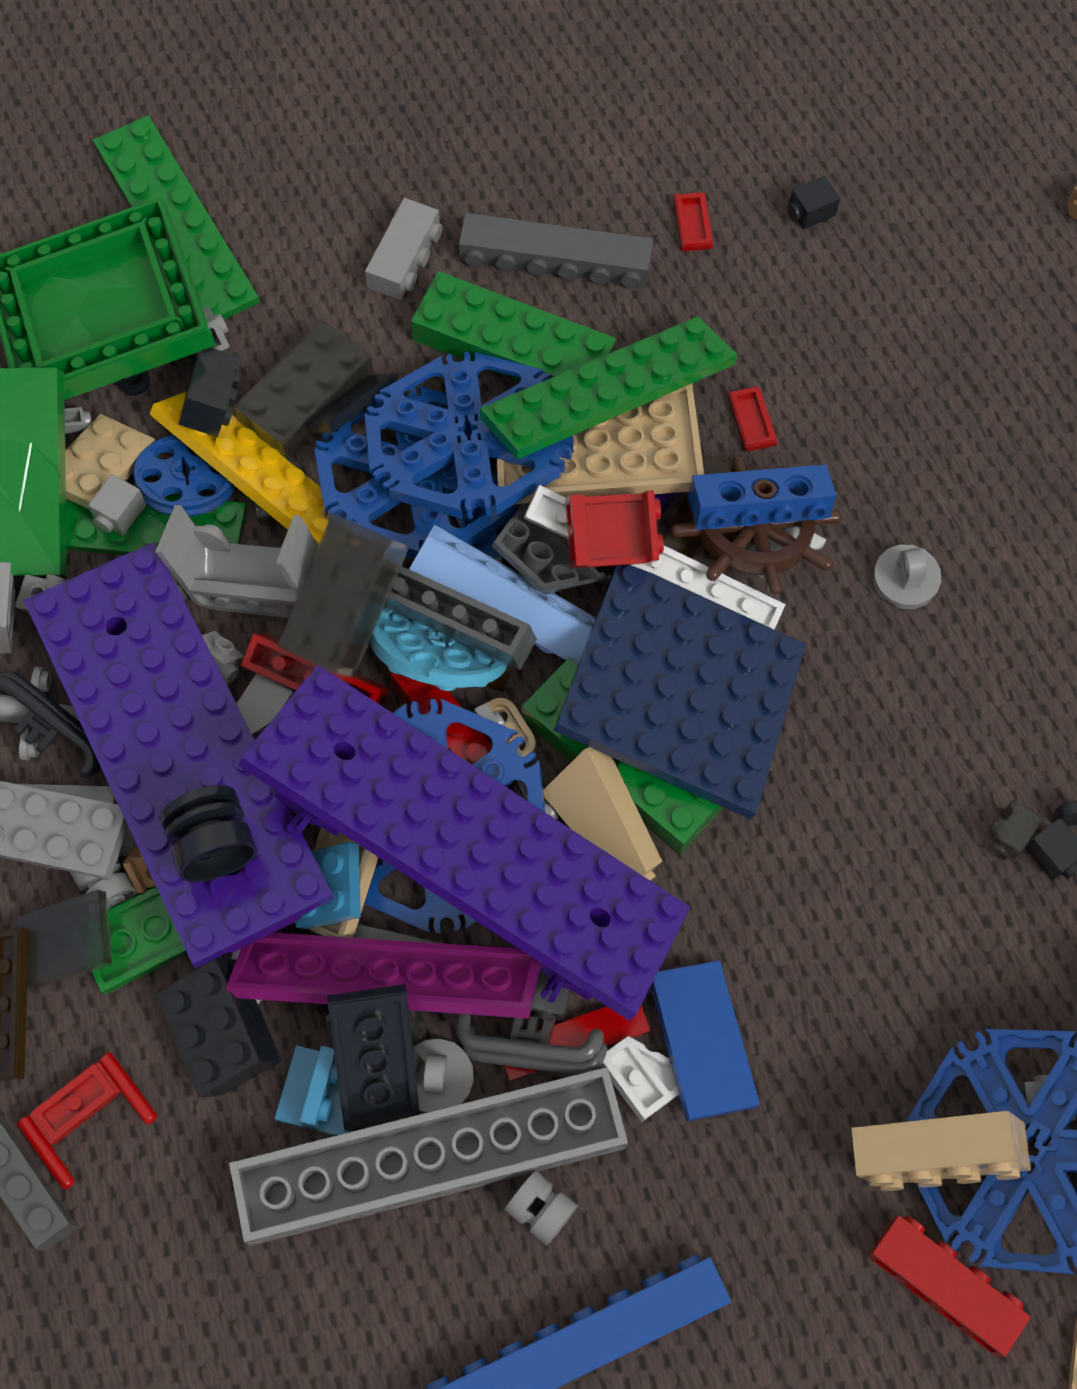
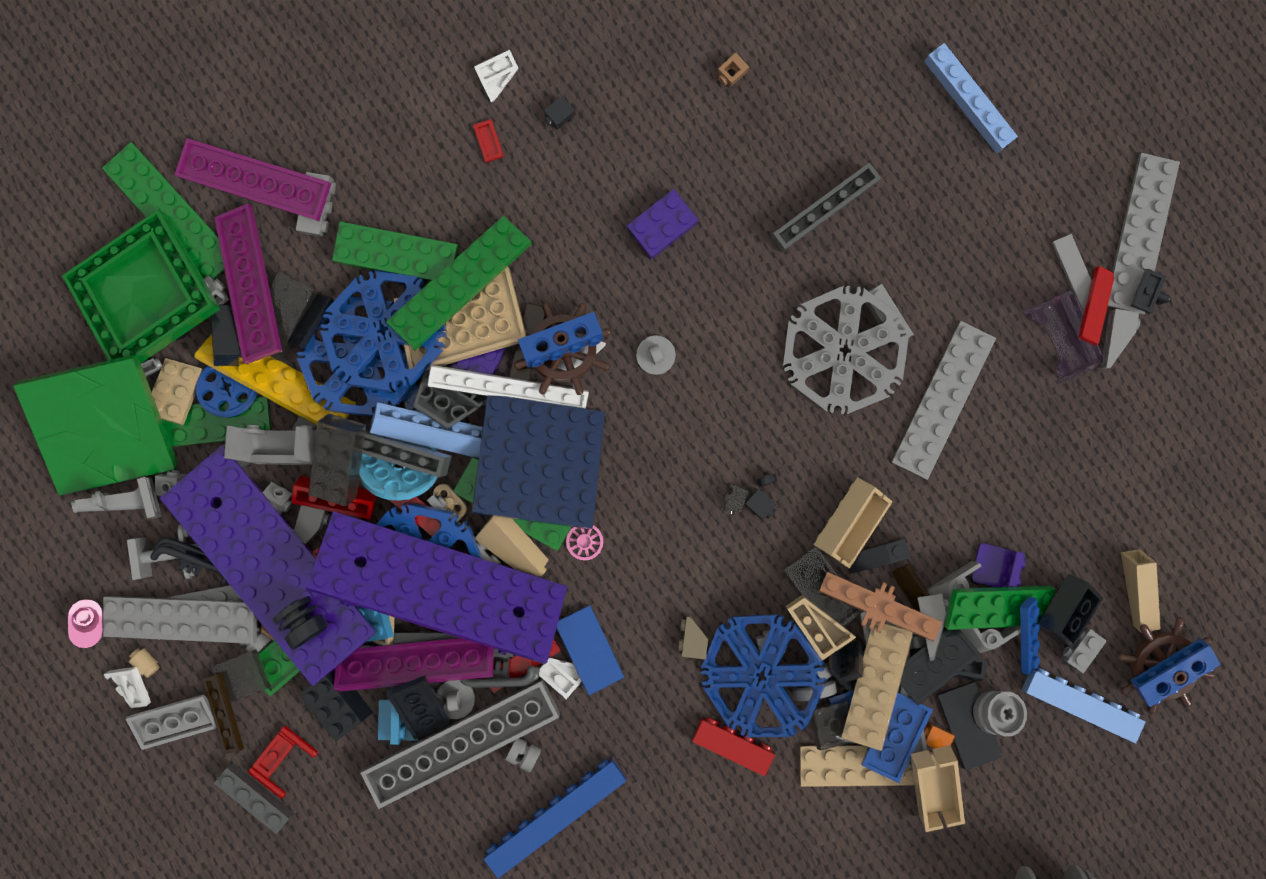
camera: 15 degrees left, 20 degrees up
(116, 505) = (193, 421): light grey brick -> none
(268, 328) = (248, 284): none -> magenta plate
(320, 192) = (253, 179): none -> magenta plate
(555, 250) = (407, 184): dark grey brick -> none
(613, 530) = (479, 382): red panel -> none
(726, 135) = (496, 73): none -> white wing
(730, 850) = (584, 542): none -> bright pink wheel
(752, 419) = (549, 271): red tile -> none
(902, 1065) = (694, 640): none -> dark tan slope
(941, 1149) = (717, 688): tan brick -> none
(951, 383) = (662, 224): none -> dark purple brick

